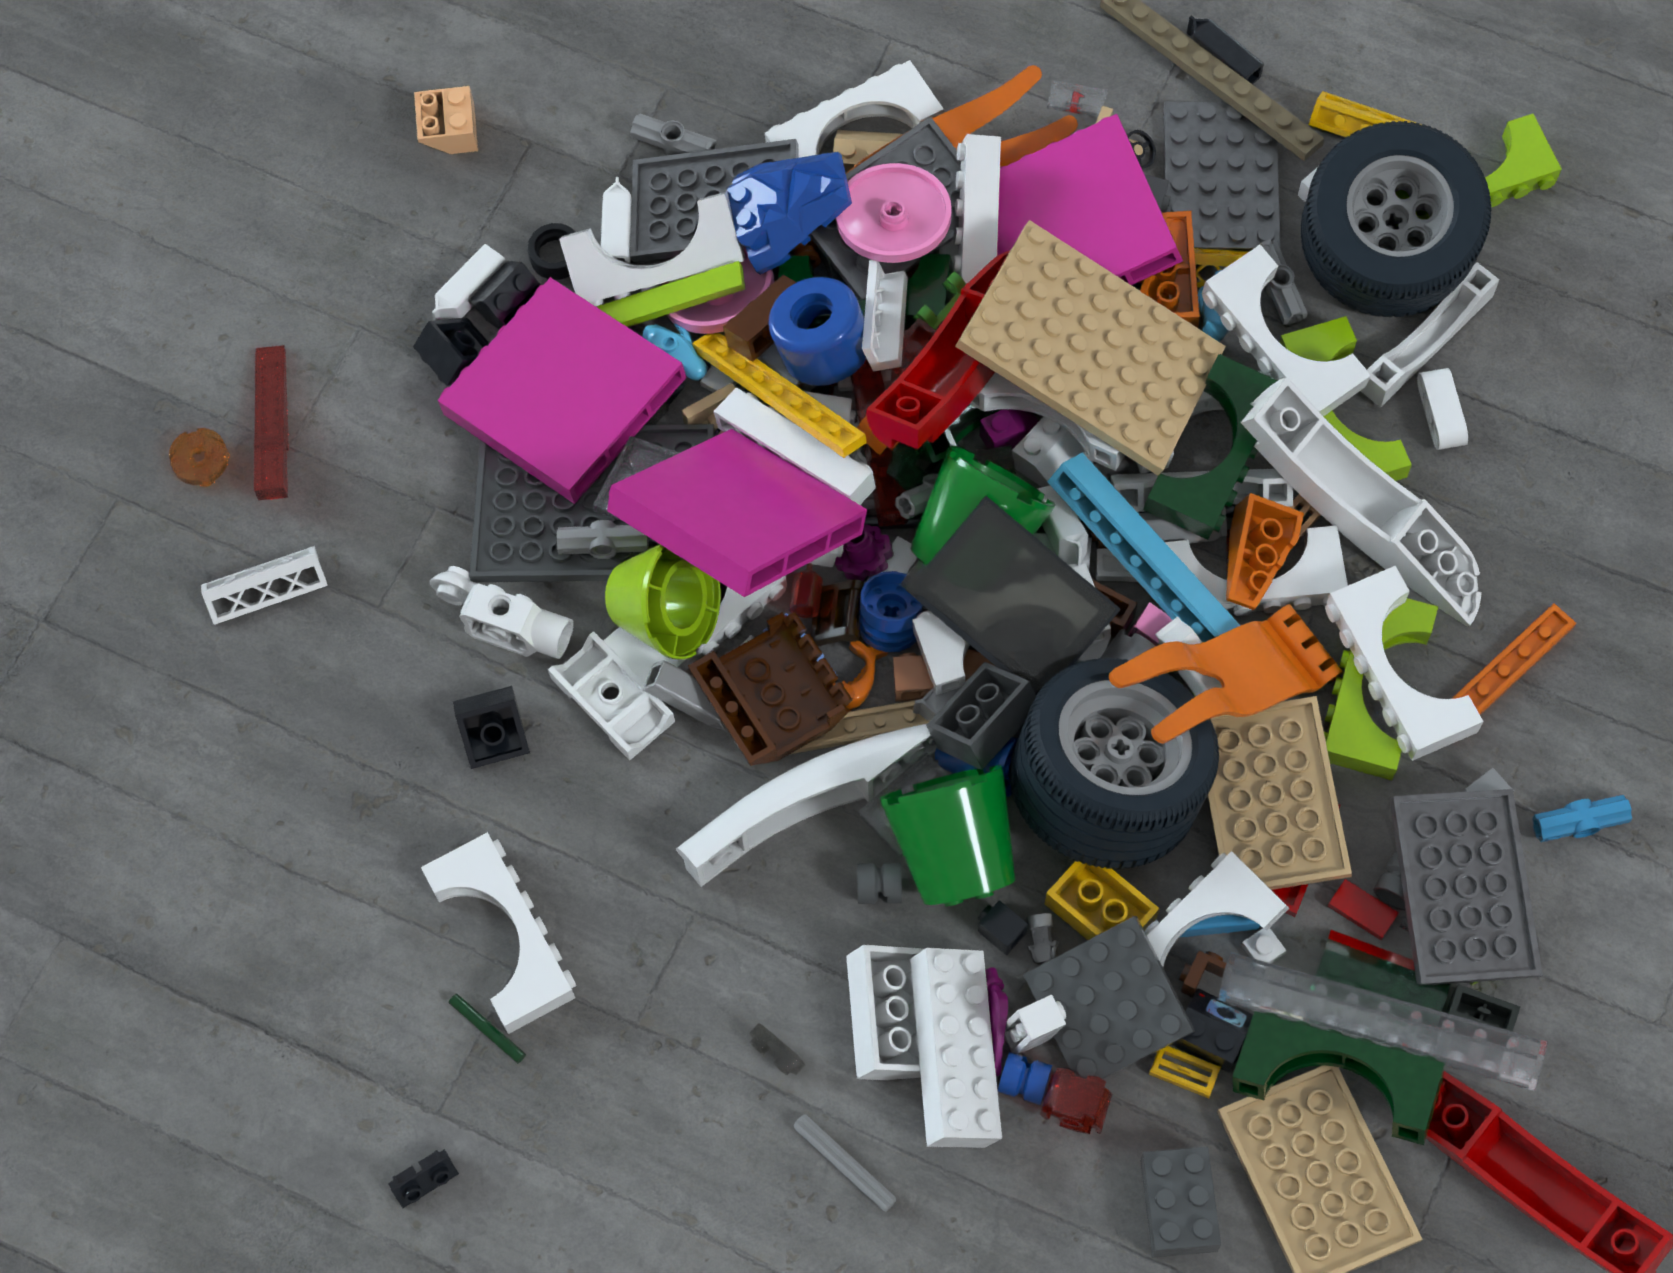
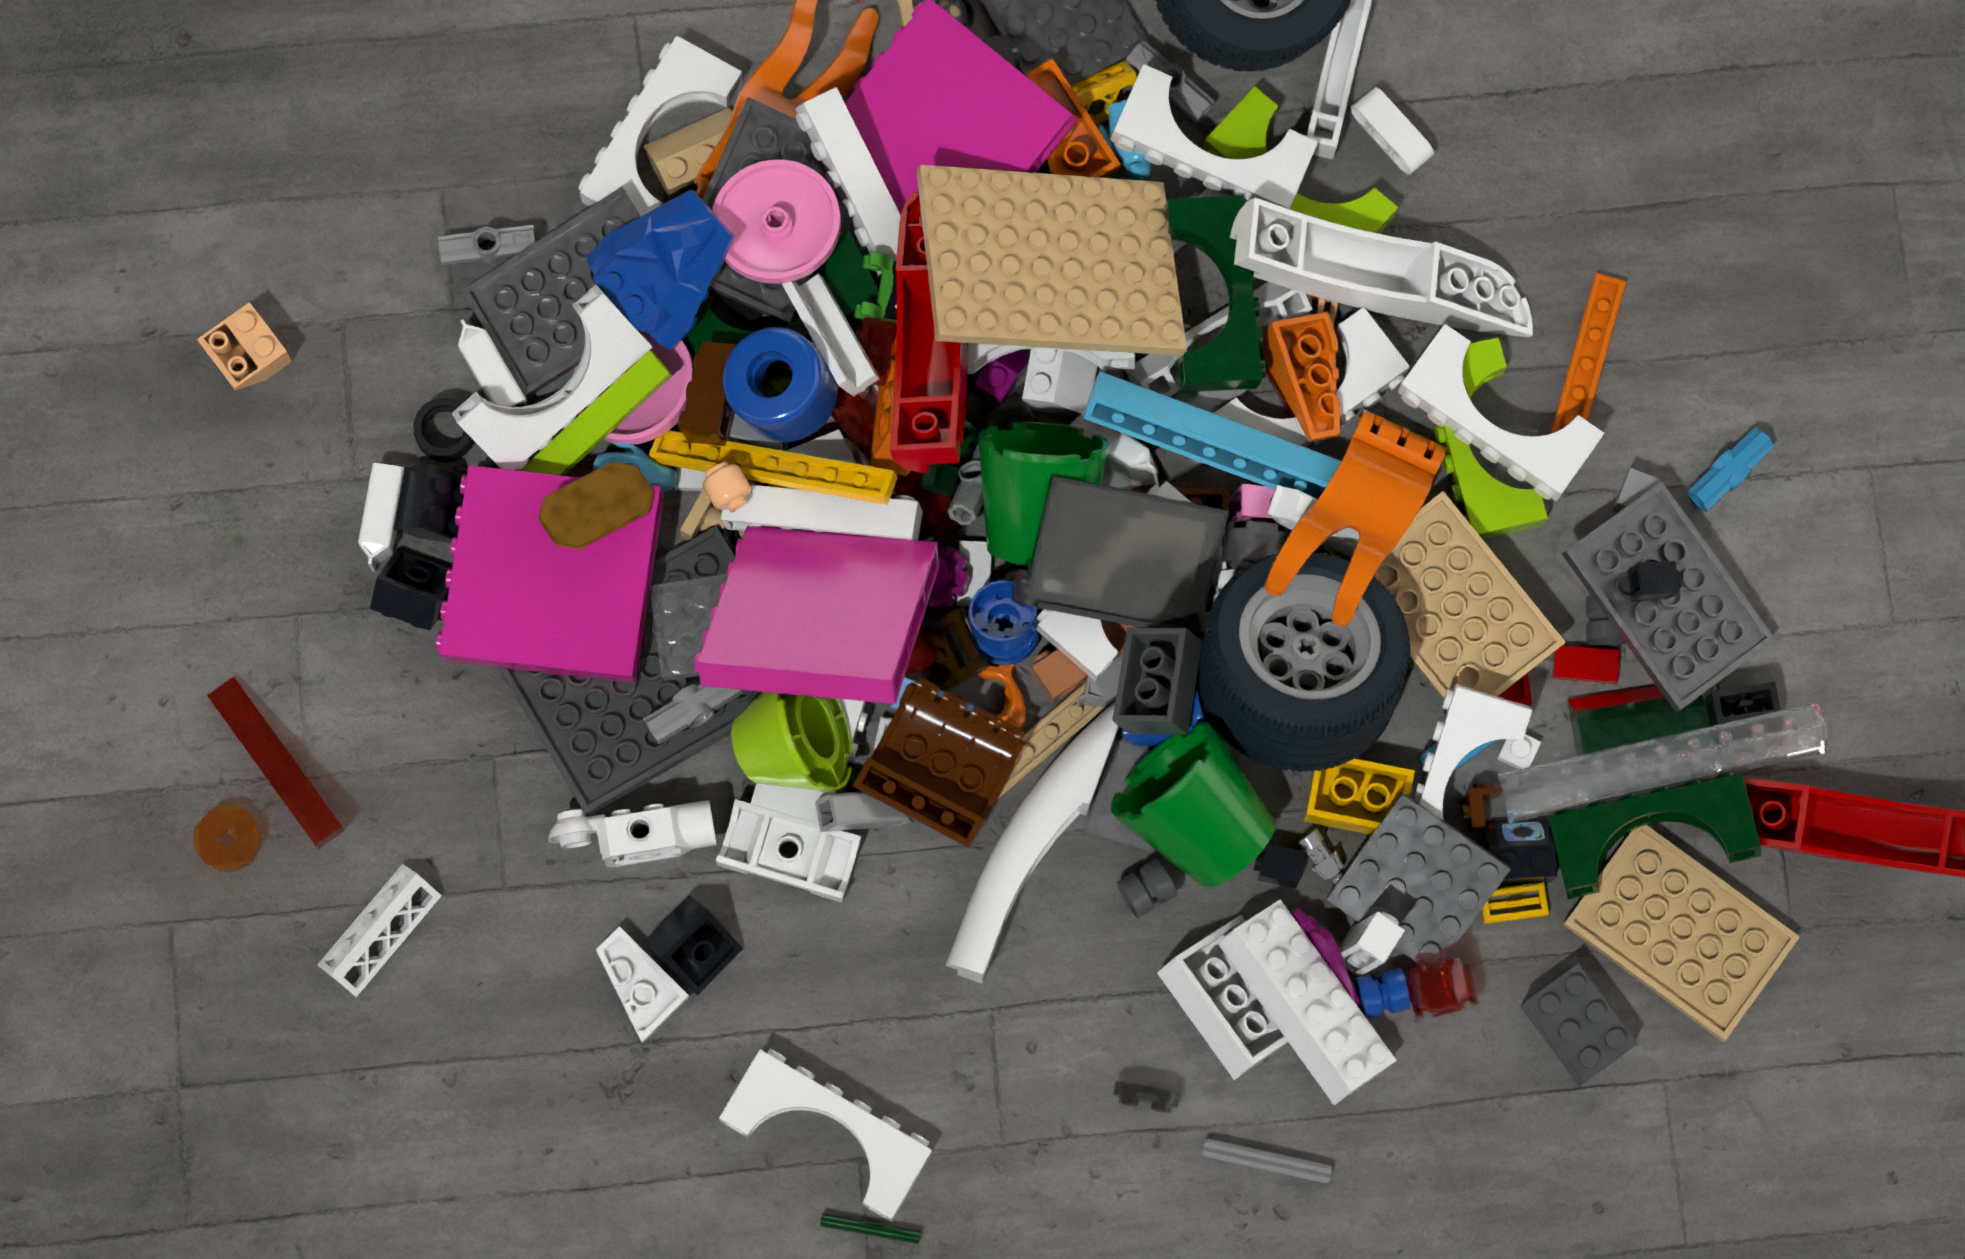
camera: 40 degrees left, 10 degrees up
(432, 734) = (640, 982): none -> white wing
(621, 347) = (596, 505): none -> pearl gold shield
(731, 386) = (726, 487): none -> light nougat head
(1457, 861) = (1654, 581): none -> black brick

